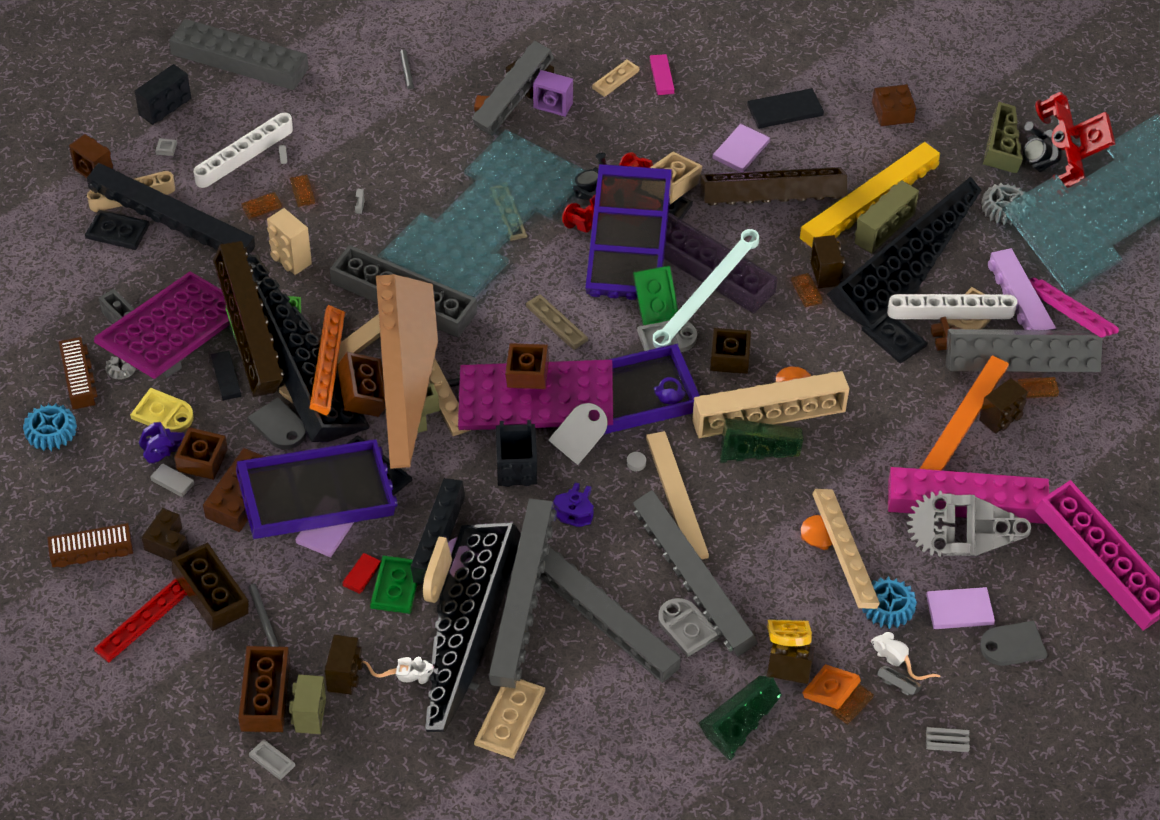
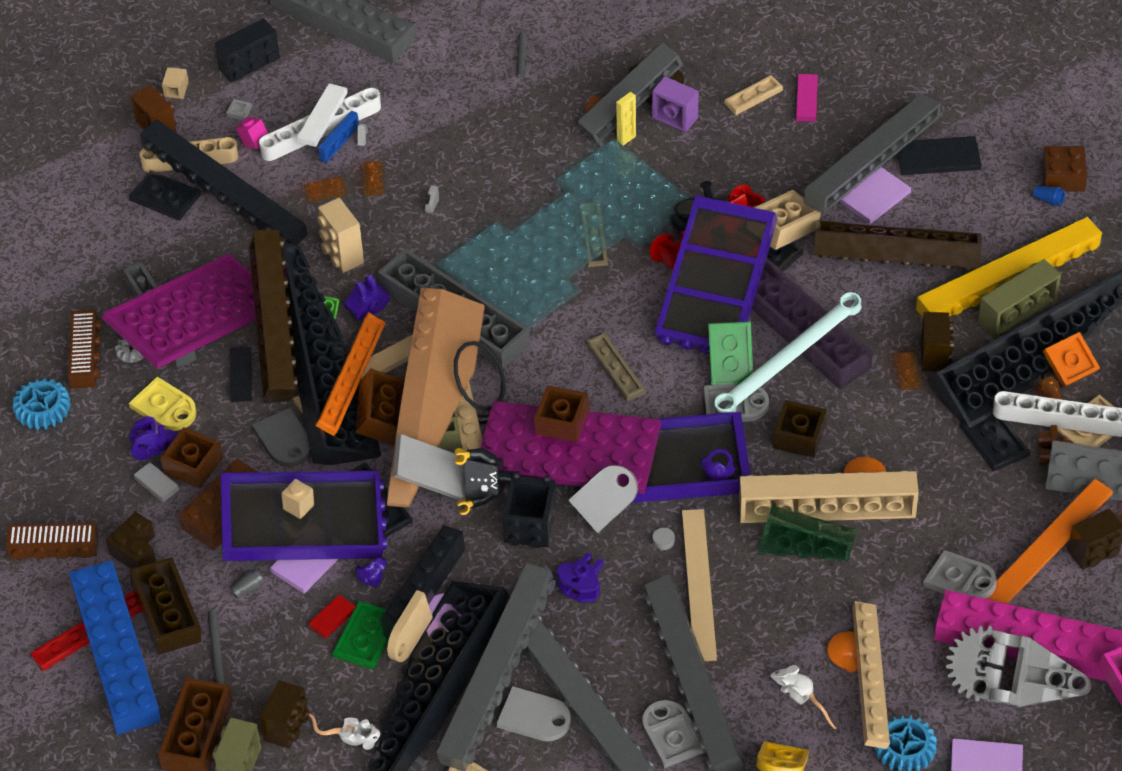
camera: 15 degrees right, 0 degrees up
(103, 130) = (175, 83): none -> tan brick
(172, 630) = (115, 647): none -> blue brick
(184, 164) = (251, 131): none -> dark pink brick
(245, 141) = (322, 115): none -> white tile
(262, 158) = (338, 137): none -> blue tile
(279, 555) = (247, 583): none -> dark grey cone
(311, 473) = (297, 498): none -> tan brick
(324, 293) = (367, 298): none -> dark purple hinge
(389, 529) = (371, 573): none -> dark purple piece
(422, 429) = (429, 467): none -> light grey tile
(428, 351) = (503, 385): none -> black piece
(468, 432) = (483, 477): none -> torso
(515, 109) = (626, 118): none -> light yellow tile
(562, 630) = (533, 715): none -> light grey tile
(731, 113) = (871, 153): none -> dark grey brick
(786, 569) = (798, 686): none -> white animal
(887, 128) = (1050, 195): none -> blue cone
(898, 452) = (961, 575): none -> light grey tile
(930, 286) = (1050, 388): none -> clear orange cone
(942, 261) = (1071, 359): none -> orange plate

